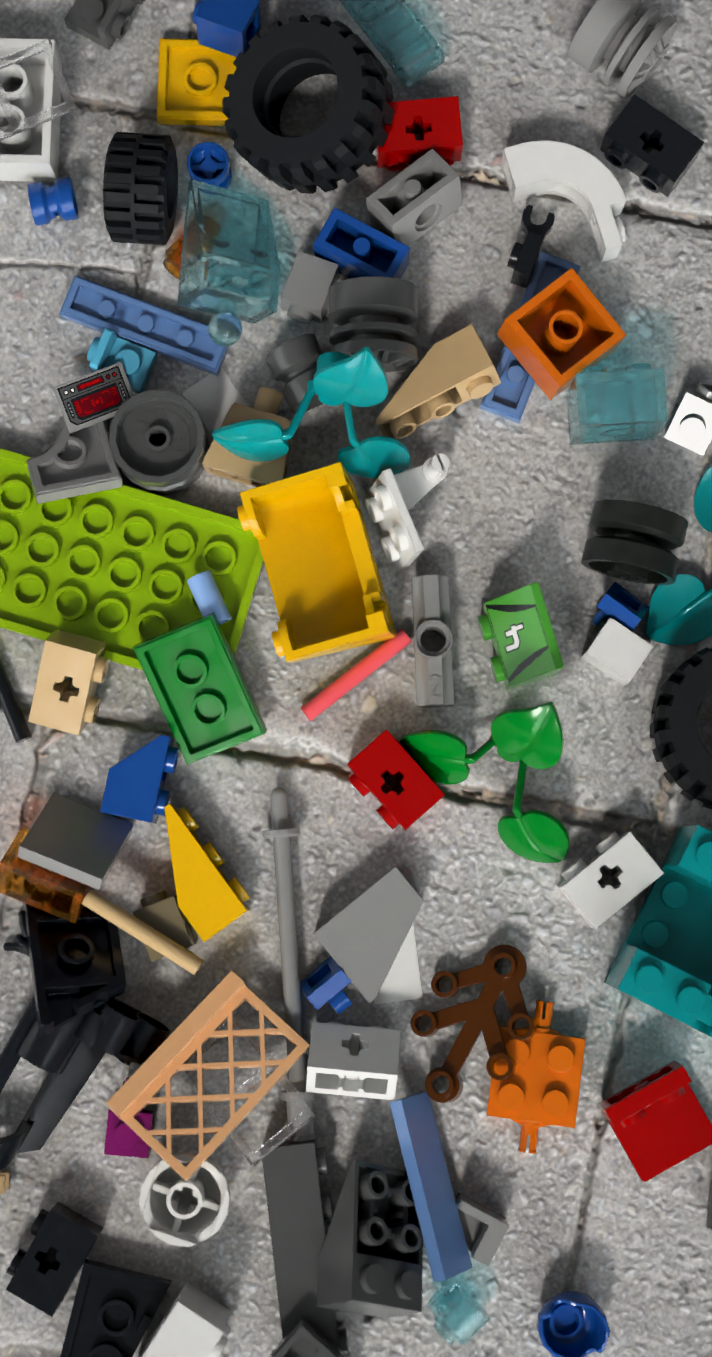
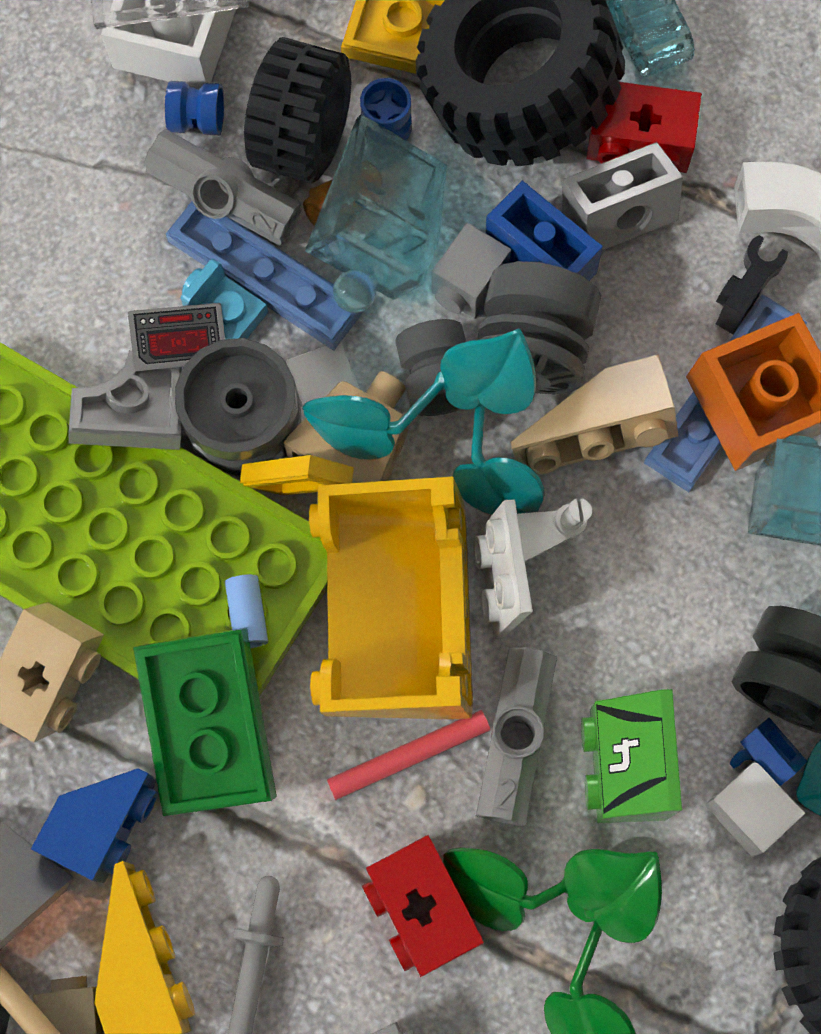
camera: 15 degrees right, 10 degrees down
(115, 270) = (197, 175): none -> light grey piece
(218, 486) = (294, 474): none -> yellow tile

